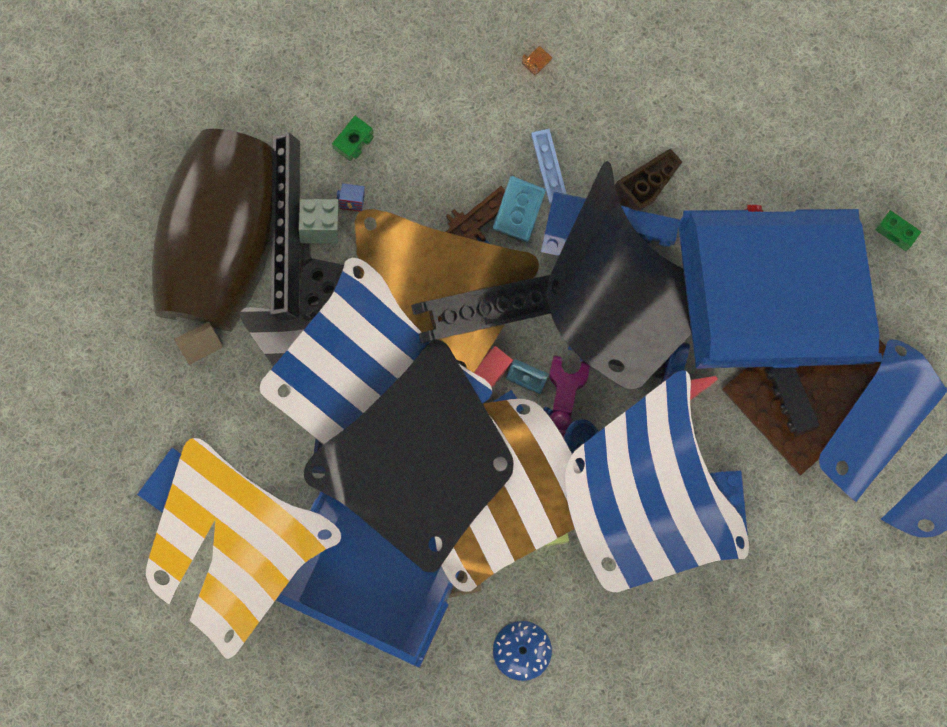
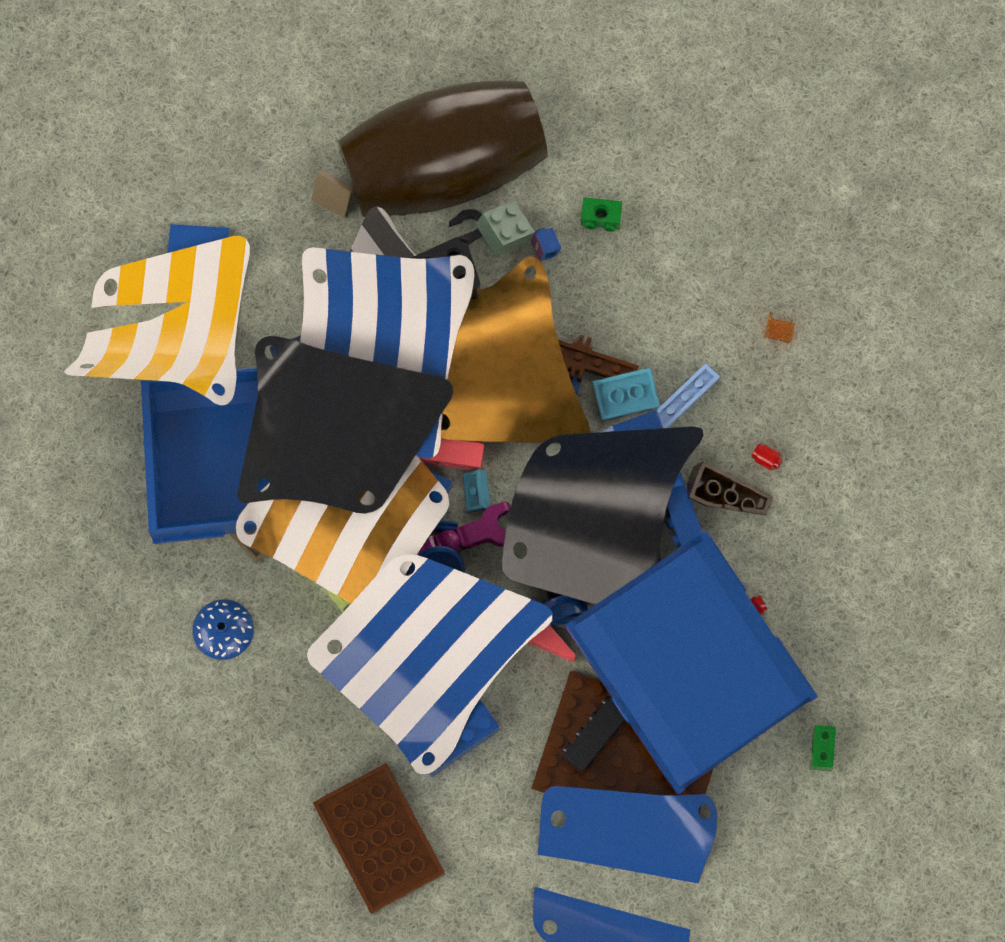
camera: 65 degrees right, 5 degrees down
(285, 227) = (471, 205): black brick -> none
(486, 308) = (501, 404): black hinge -> none
(637, 132) = (767, 457): none -> red brick
(773, 621) = (378, 838): none -> reddish brown plate

